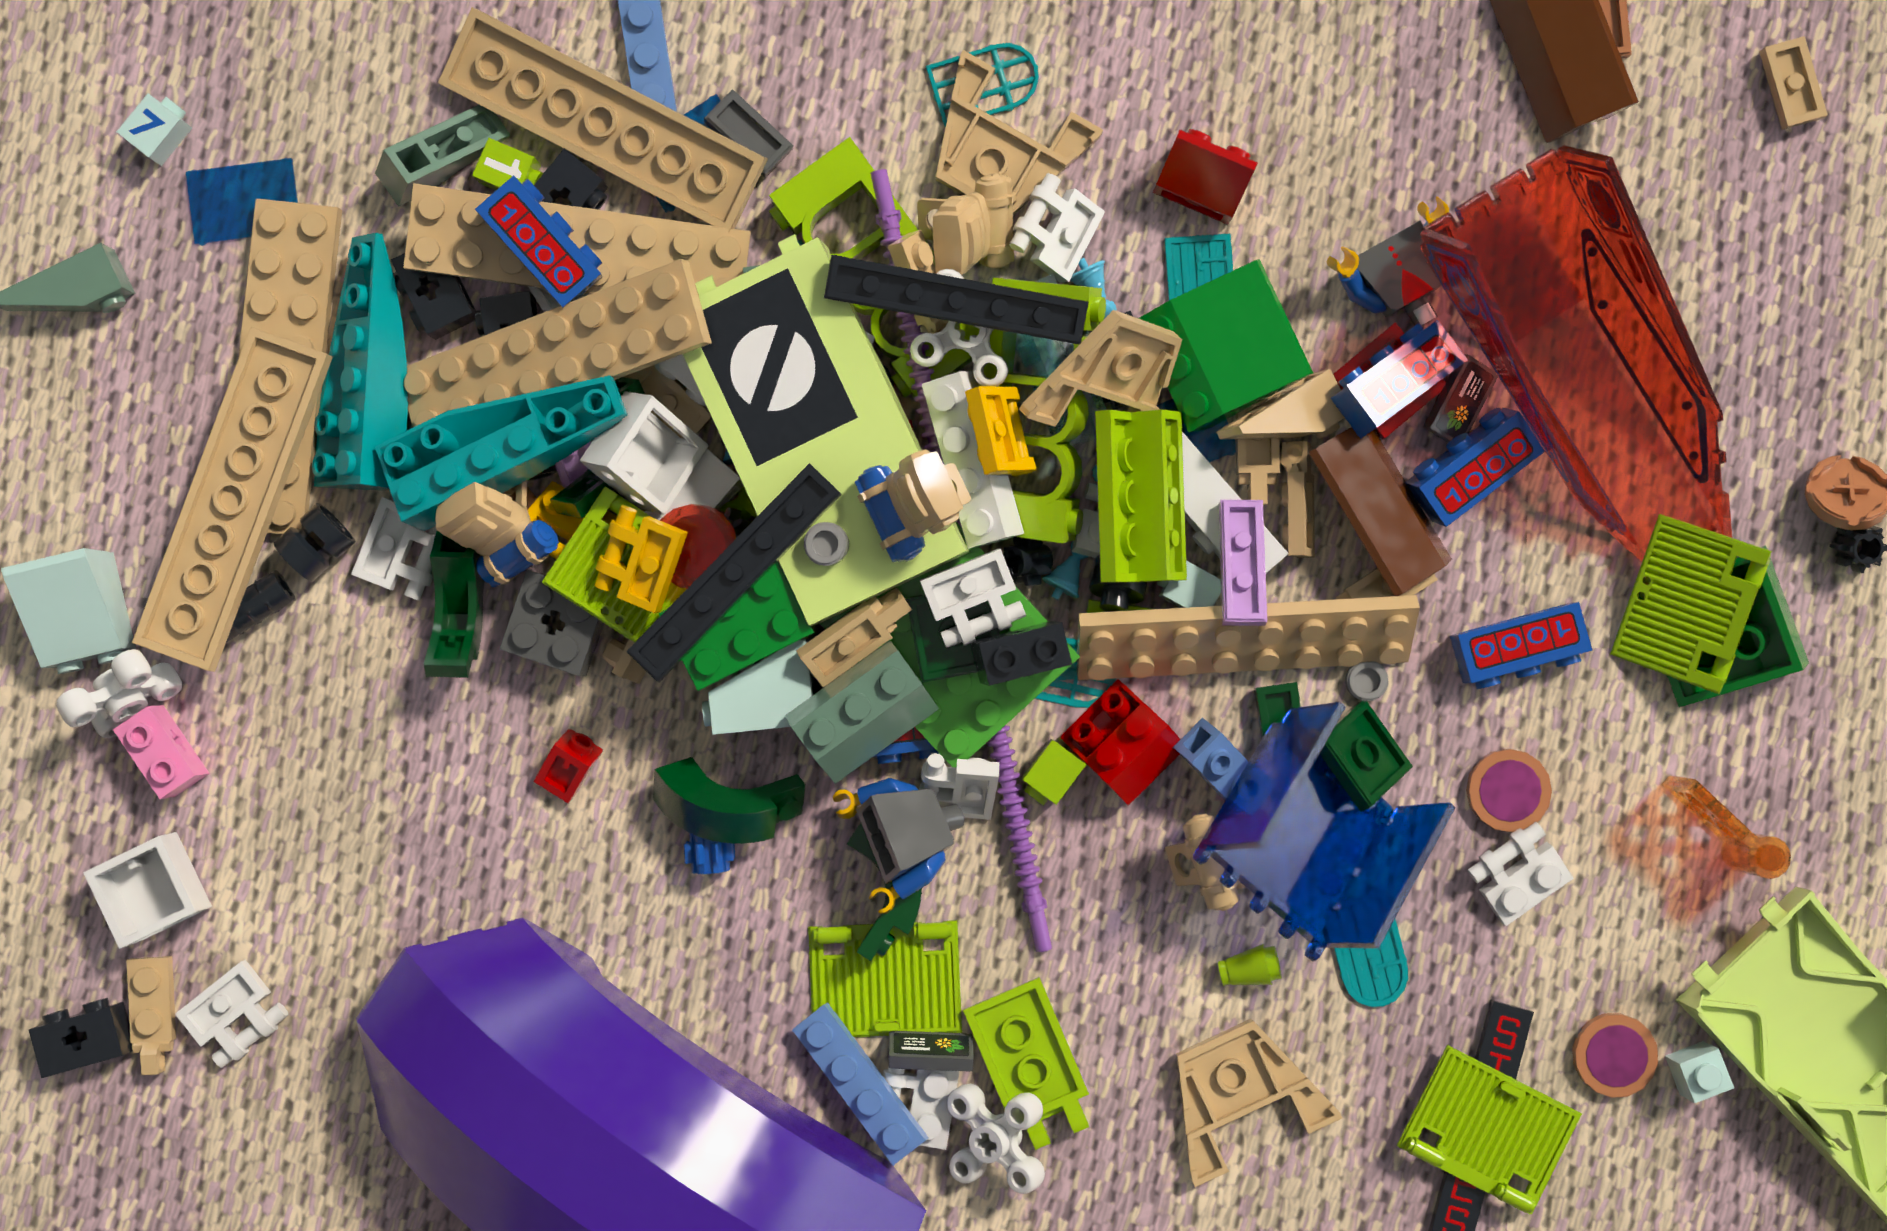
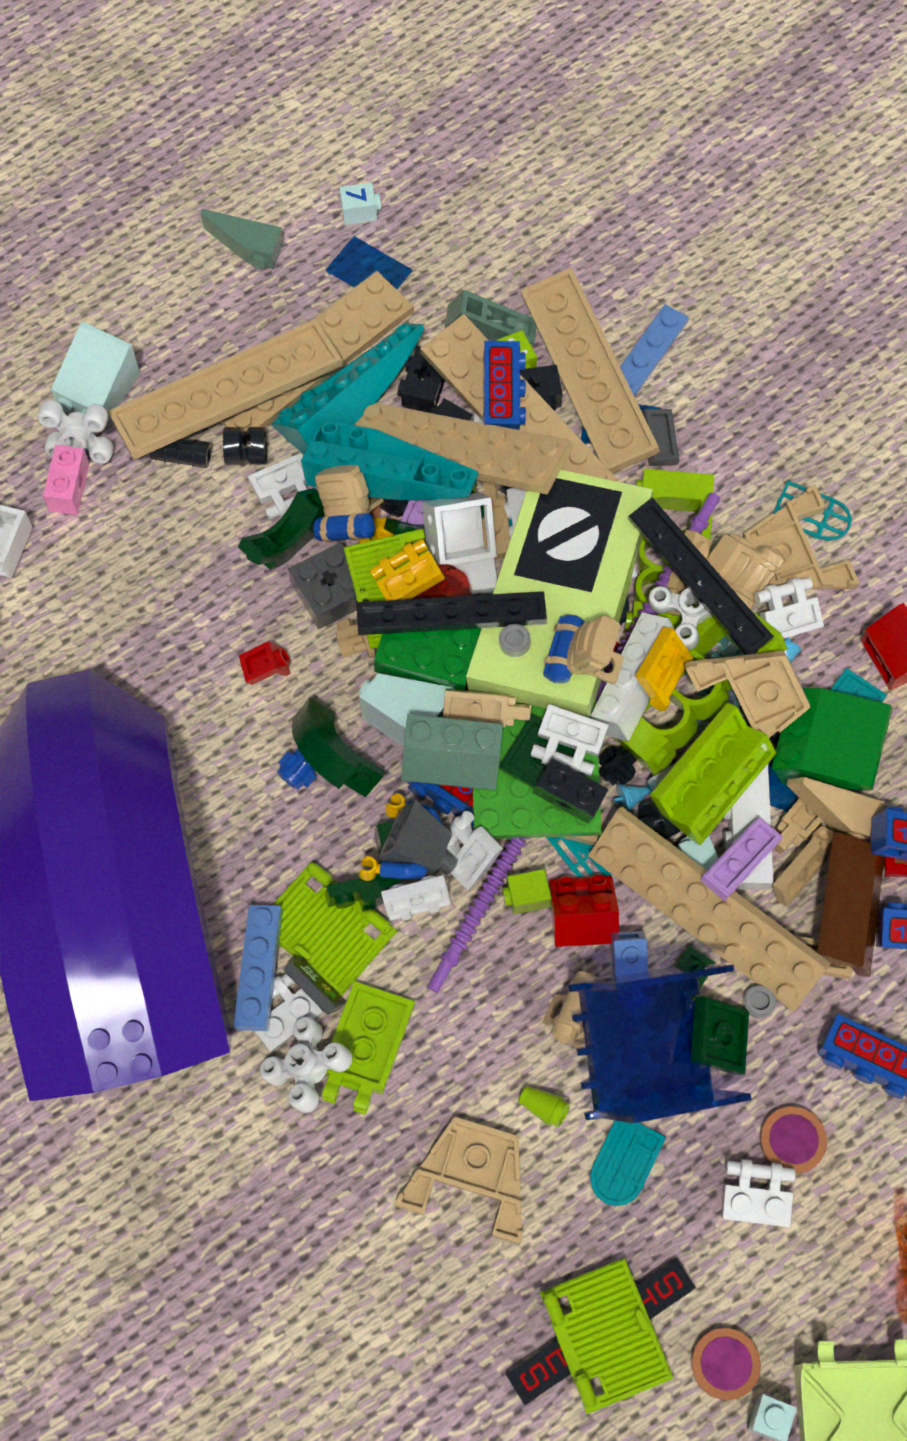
camera: 40 degrees right, 20 degrees down
(944, 895) = (416, 898): none -> white plate

